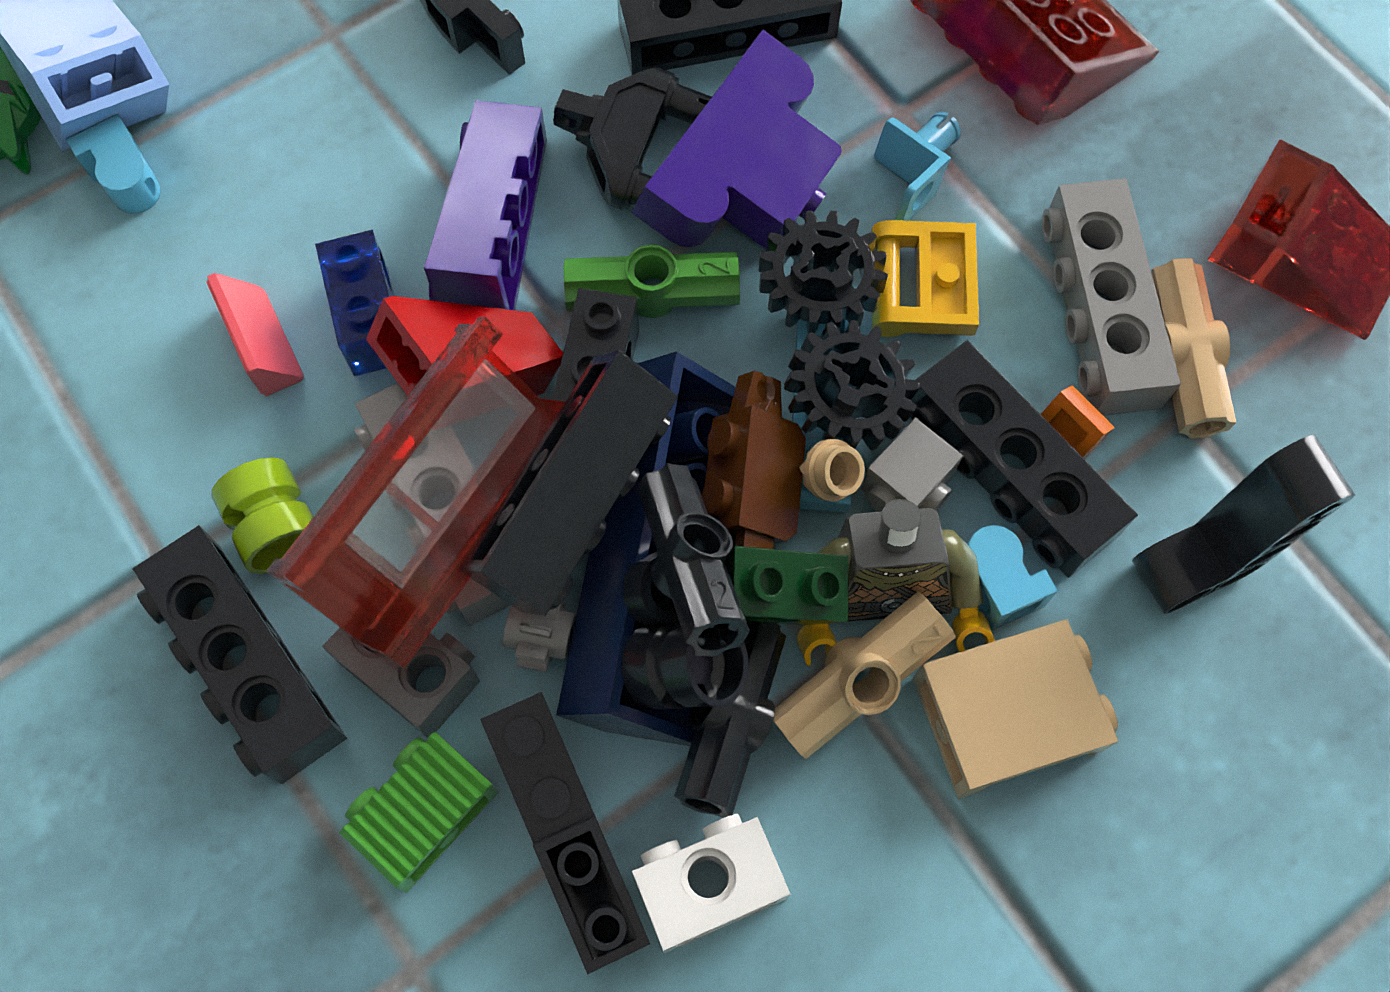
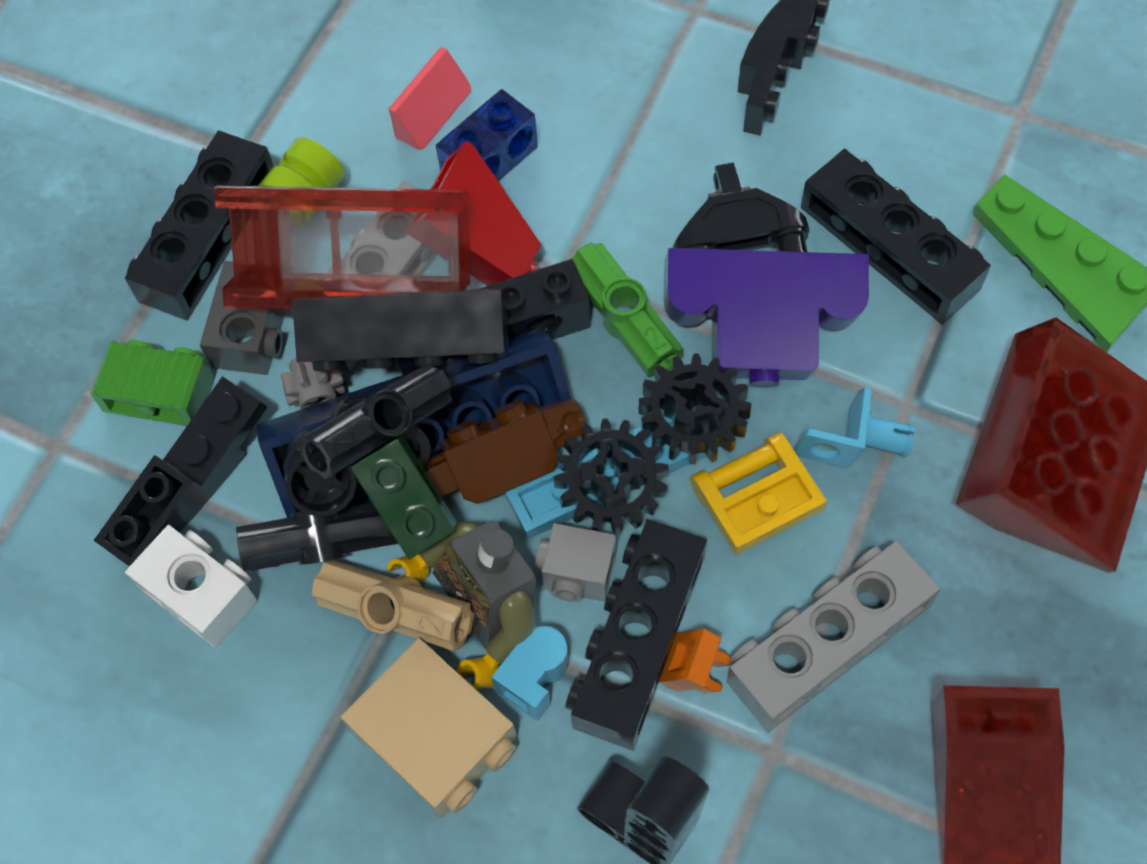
camera: 65 degrees right, 5 degrees down
(488, 208) = (604, 176): wedge -> none
(832, 470) = (533, 497): tan plate -> none
(1198, 347) = (828, 723): tan piece -> none

